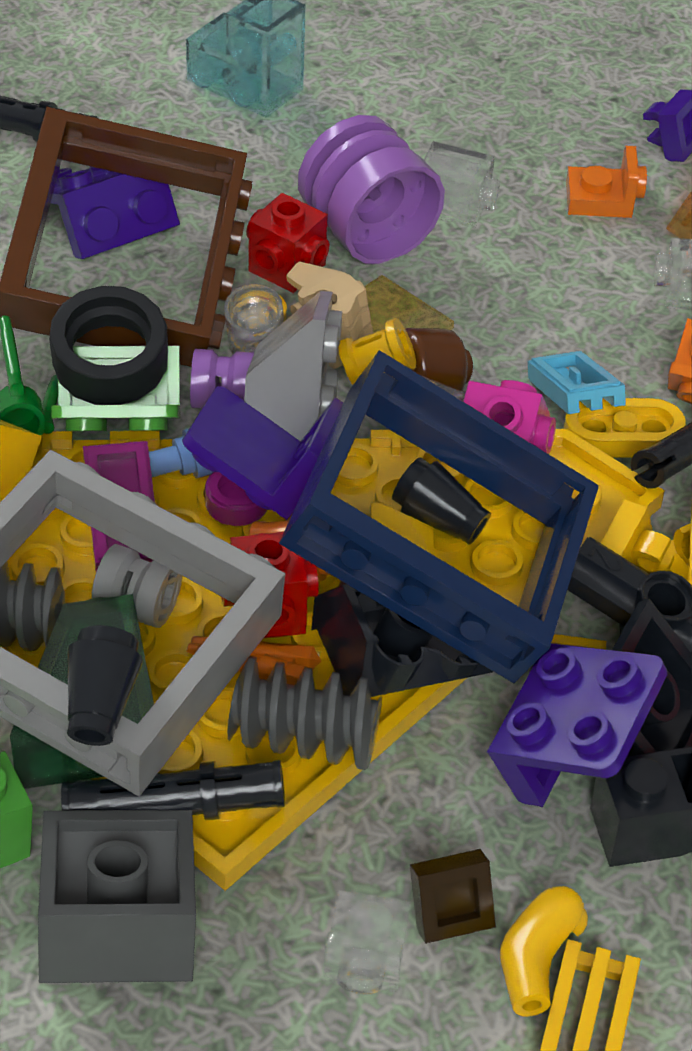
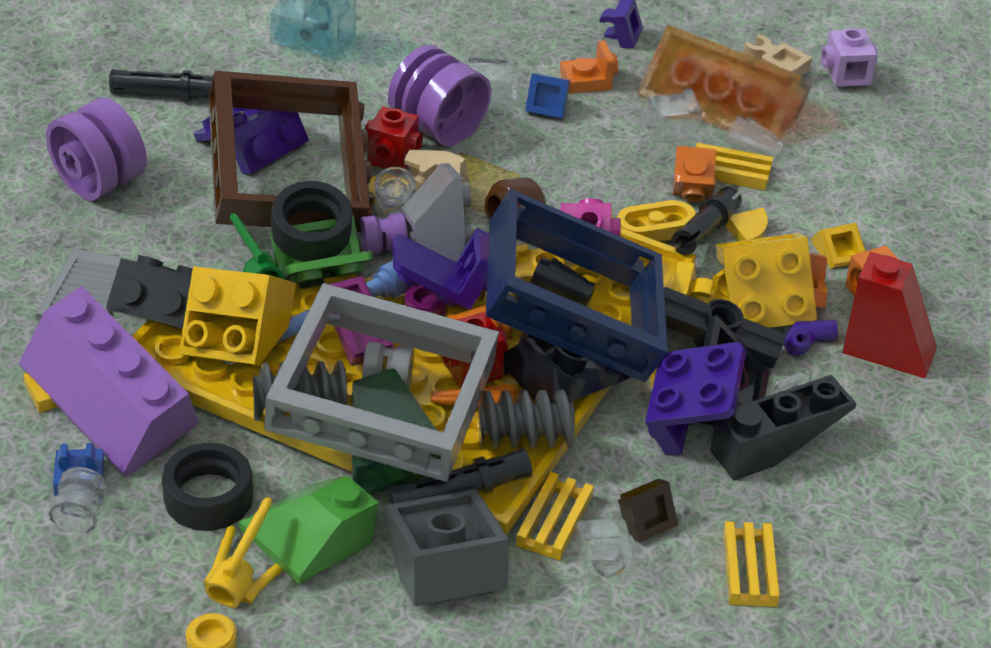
camera: 15 degrees left, 5 degrees down
(100, 680) = (416, 408): black cone -> none
(344, 830) = (531, 521): none -> yellow tile
(391, 340) = (487, 198): yellow bush -> none
(531, 212) = (547, 95): none -> blue tile
(532, 944) = (705, 528): yellow arm -> none
(582, 382) = (620, 195): medium azure tile -> none

